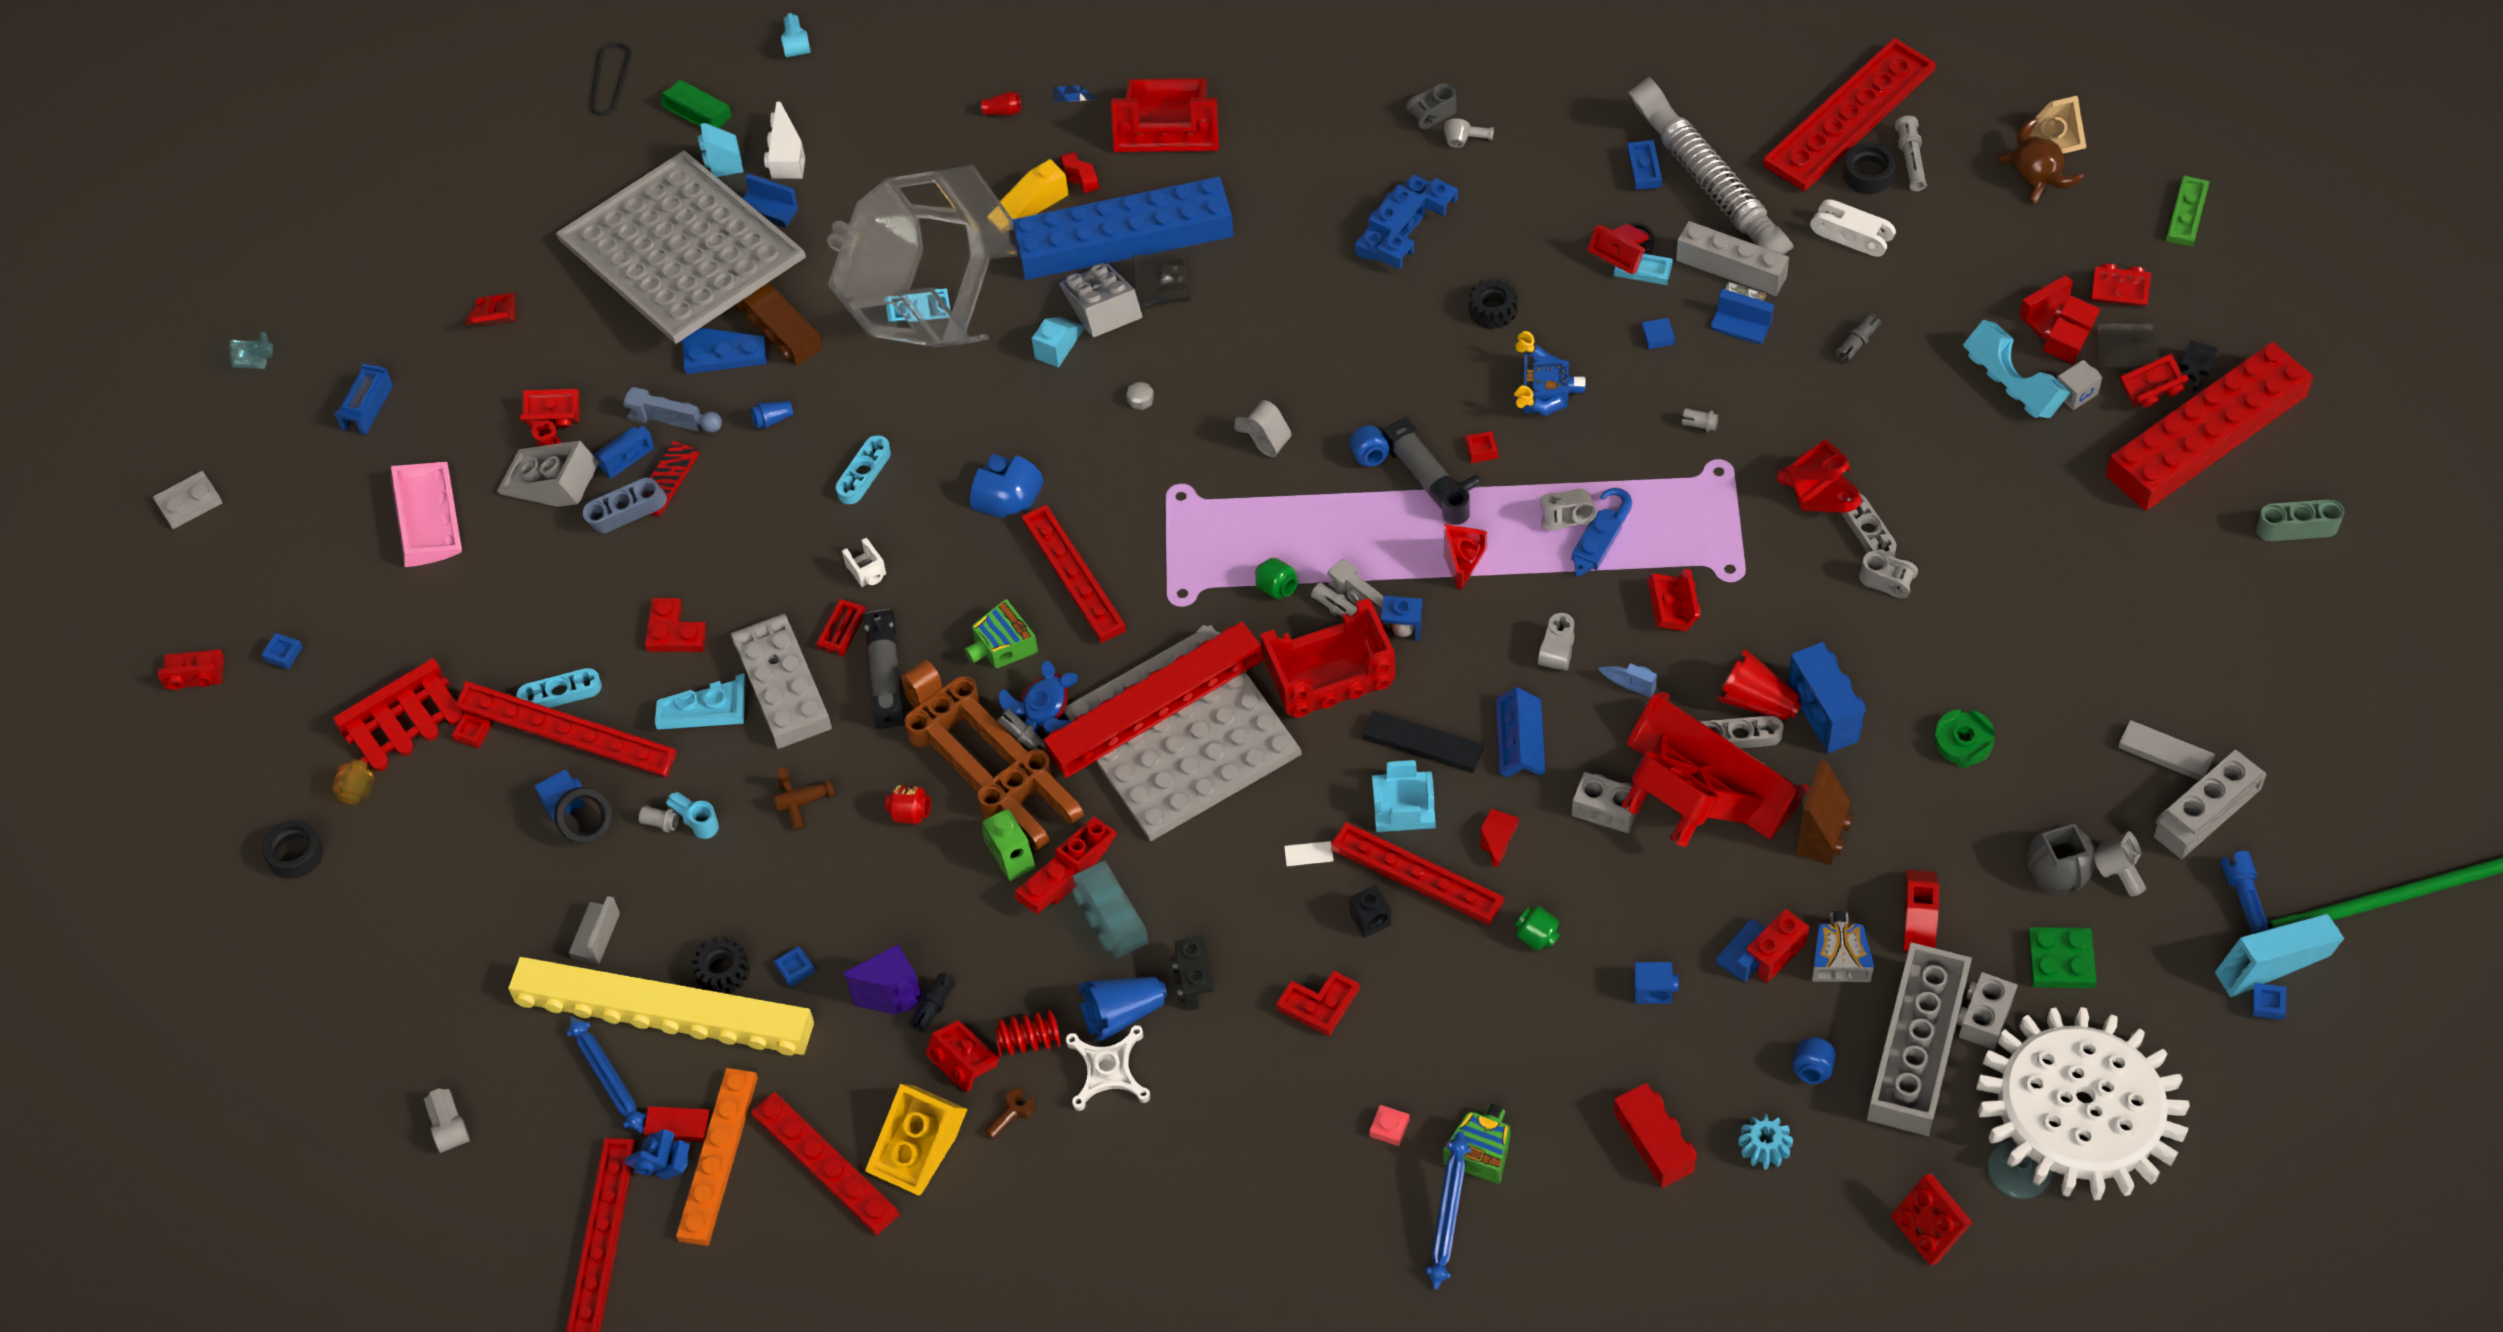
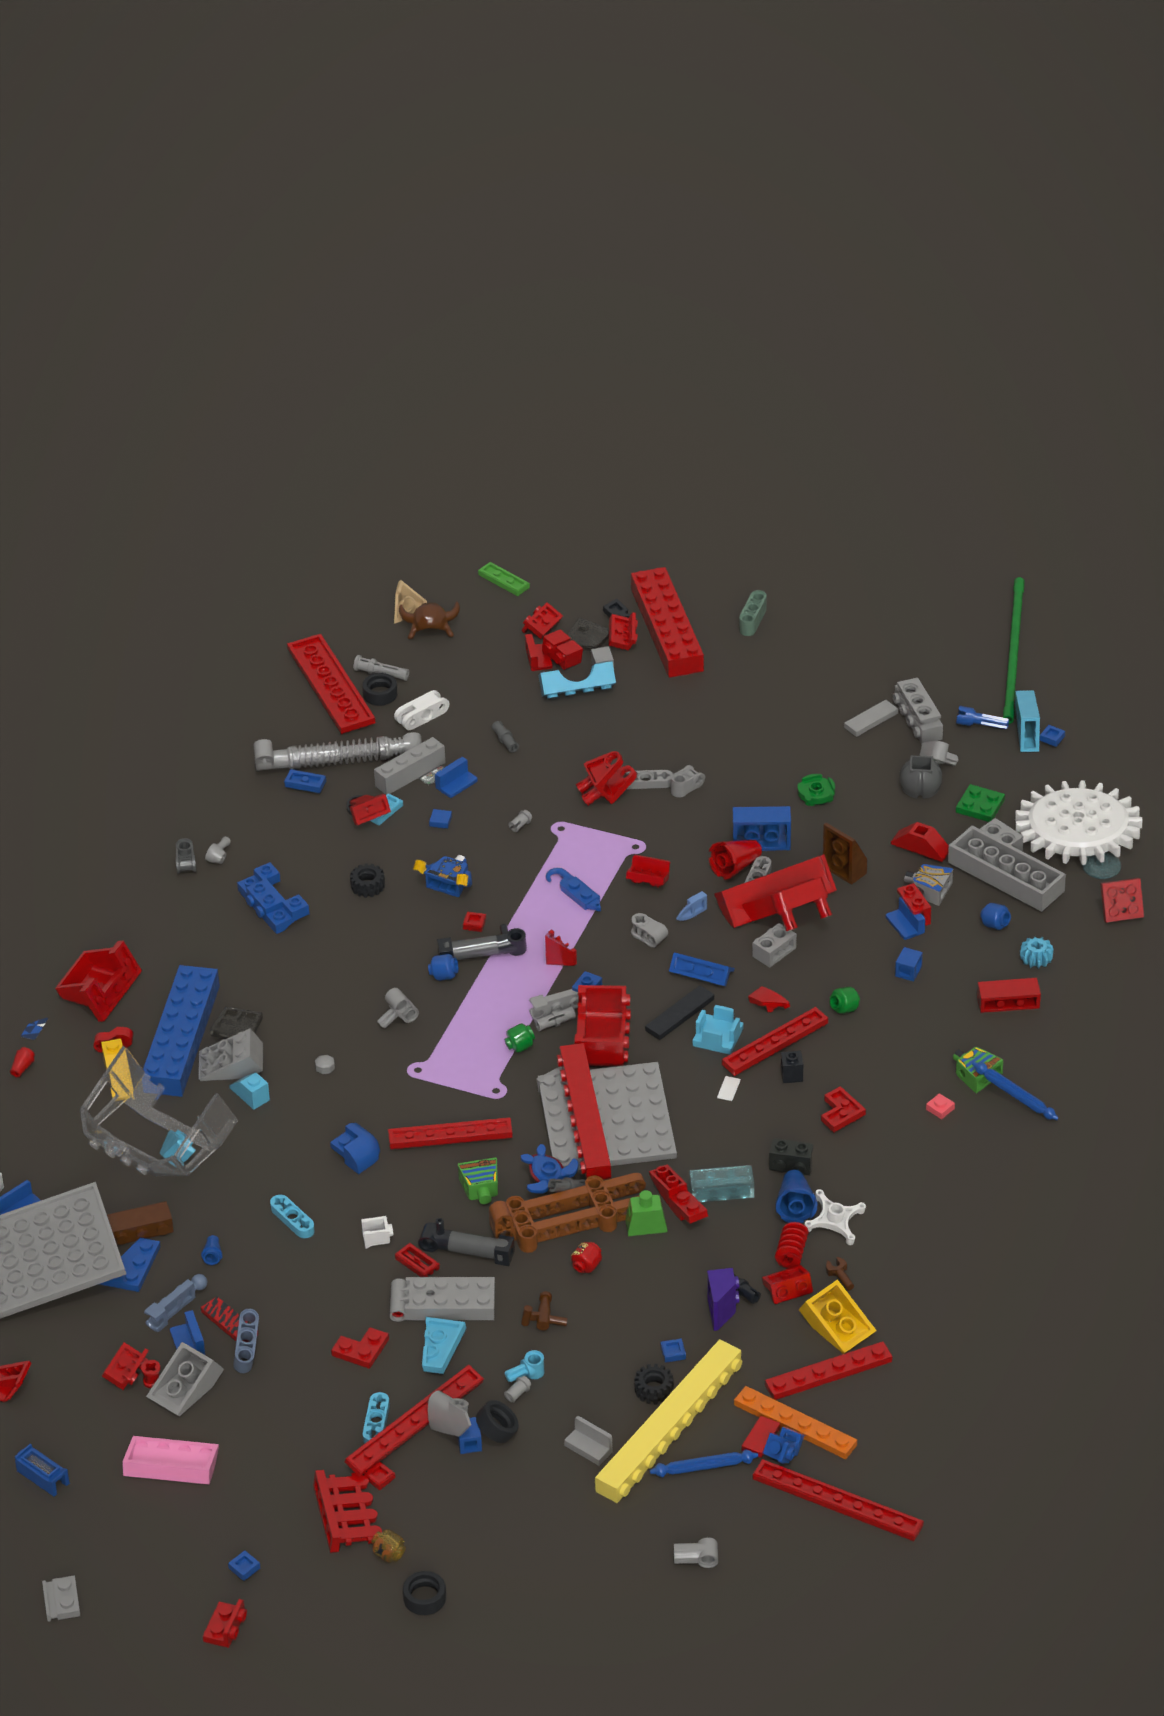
camera: 70 degrees left, 15 degrees down
(563, 755) = (448, 1414): none -> light grey panel
(1567, 509) = (553, 894): light grey piece -> none

